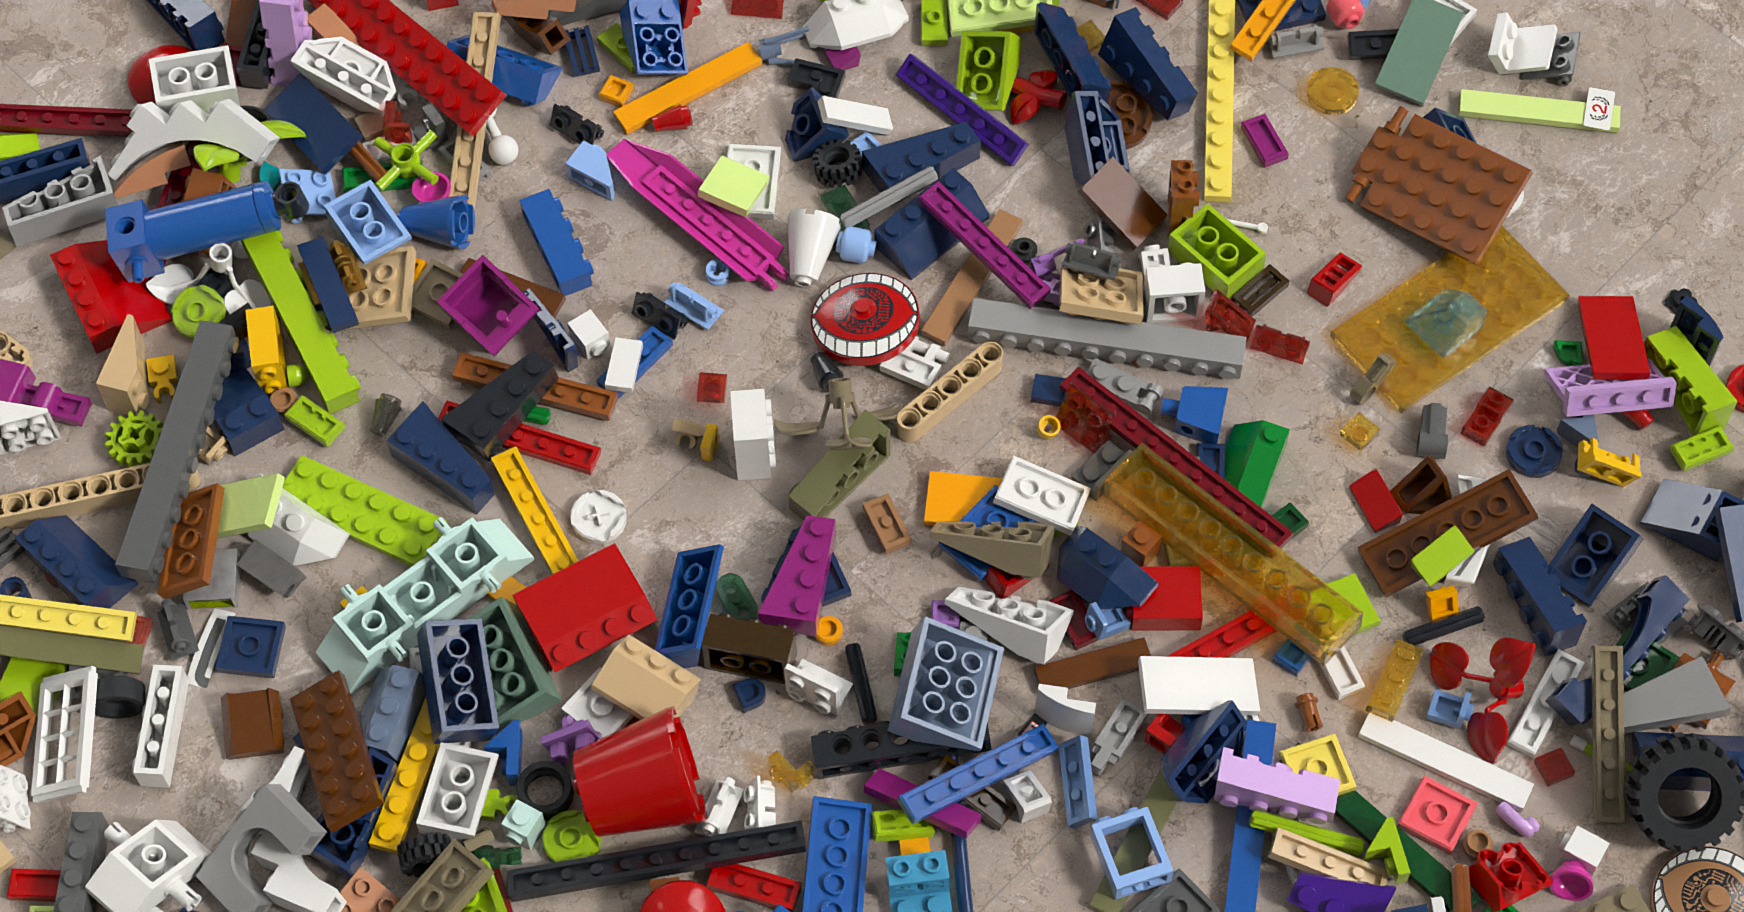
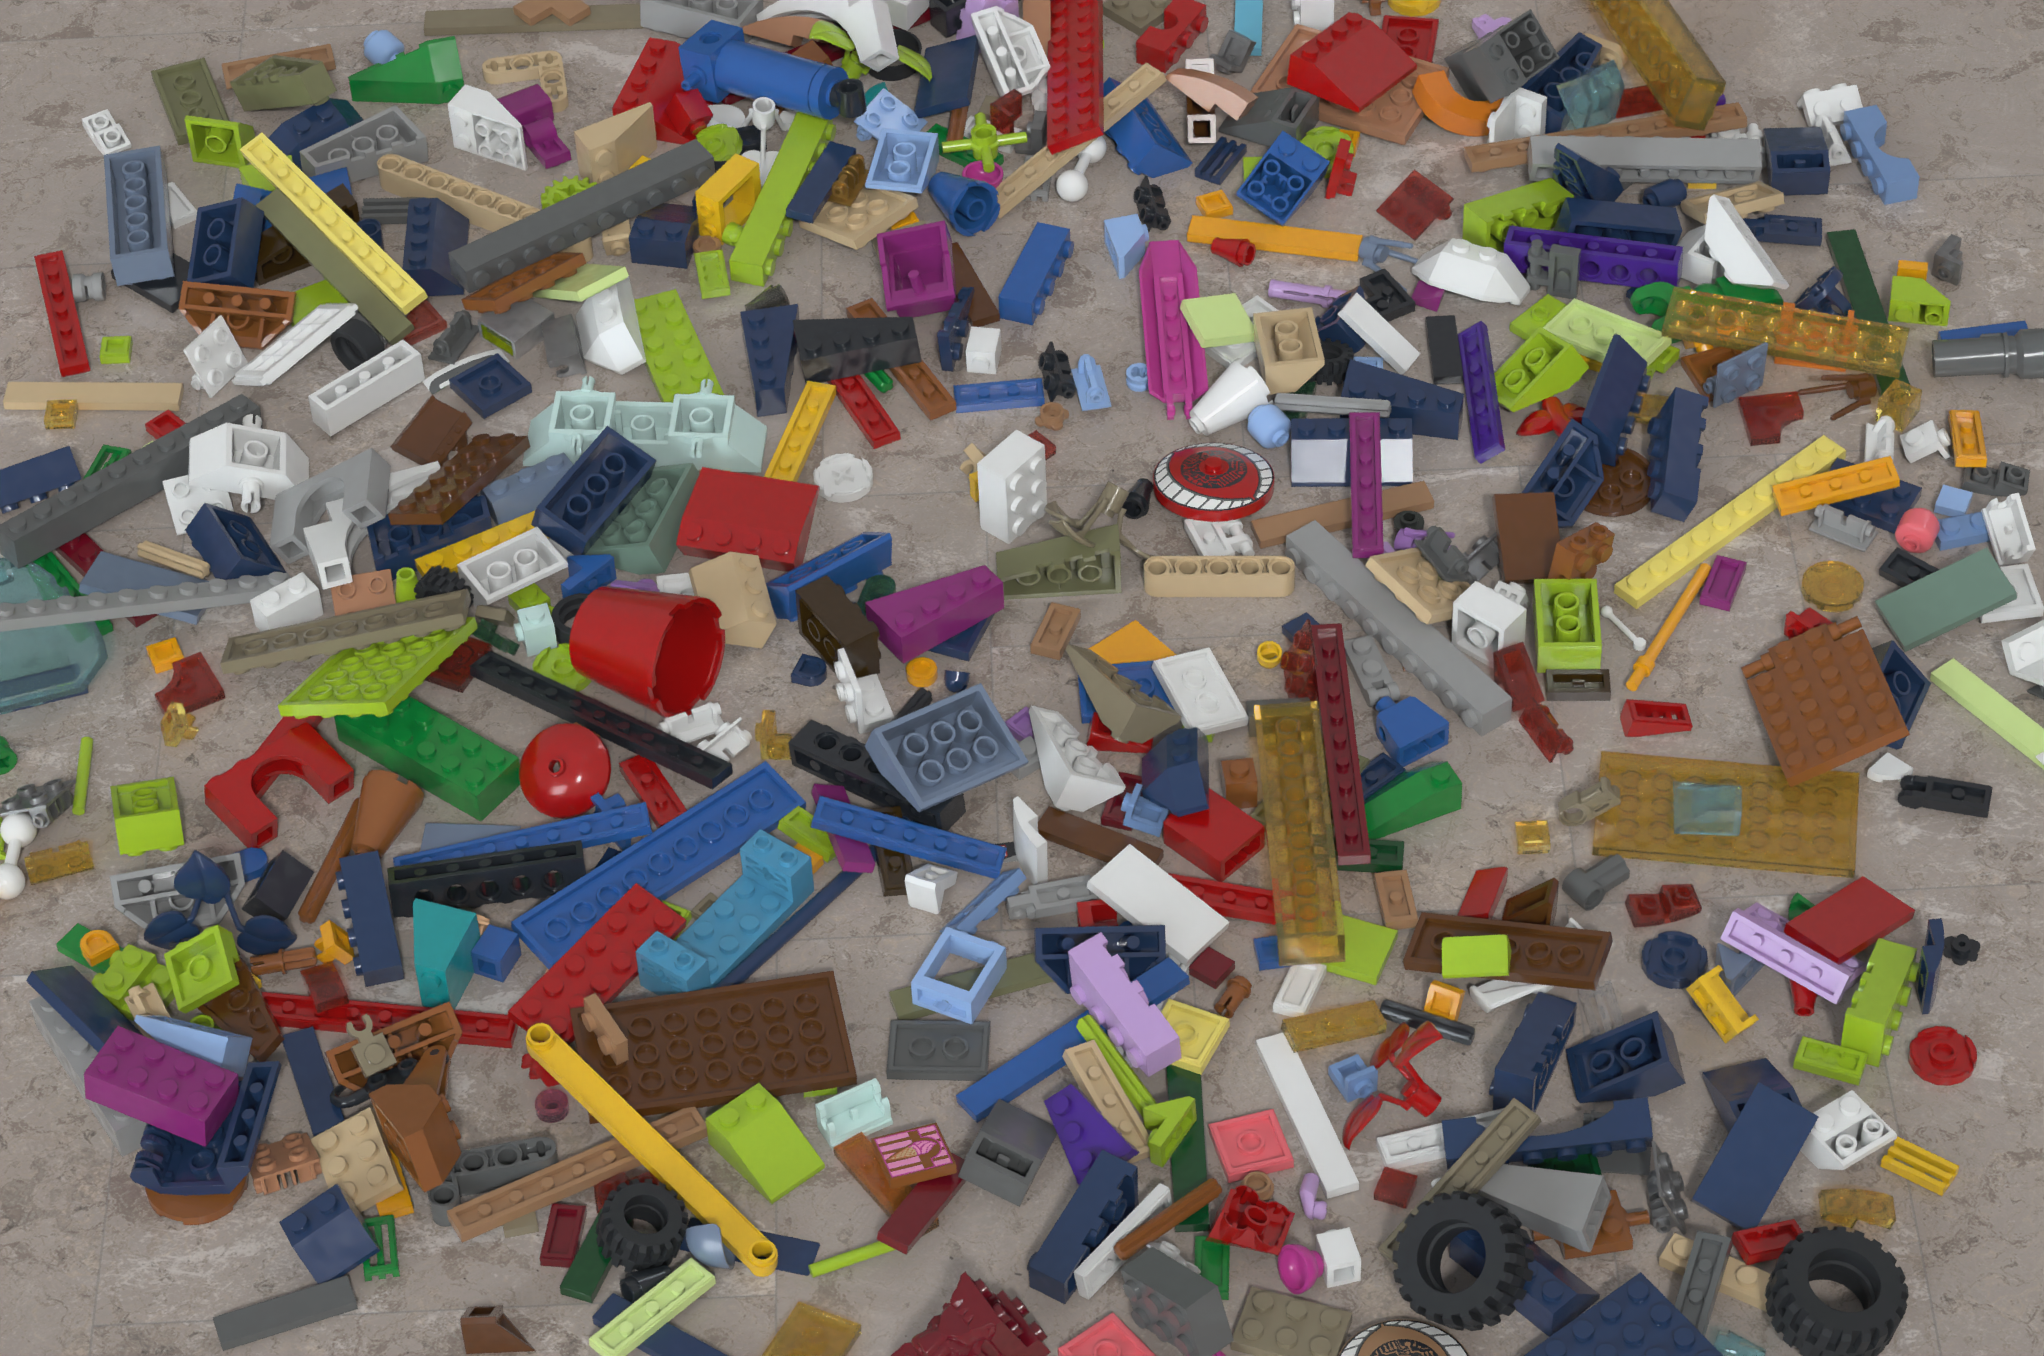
camera: 45 degrees right, 15 degrees down
(152, 298) = (689, 112): none -> red brick
(389, 872) = (405, 585): none -> lime cone
(623, 365) = (983, 386): white tile -> none
(693, 344) = (1052, 416): none -> medium nougat plate
(754, 120) = (1313, 294): none -> lavender pin
(813, 174) = (1287, 348): none -> tan slope
(862, 618) = (956, 681): none -> dark blue hinge
(898, 93) = (1444, 349): none -> black tile
(1271, 701) = (1212, 967): none -> dark red tile
(1285, 241) = (1646, 662): none -> light orange bar
(1329, 550) = (1396, 899): none -> medium nougat plate
(1351, 134) = (1801, 623): none -> red bracket
(1563, 195) = (1945, 795): none -> black hinge

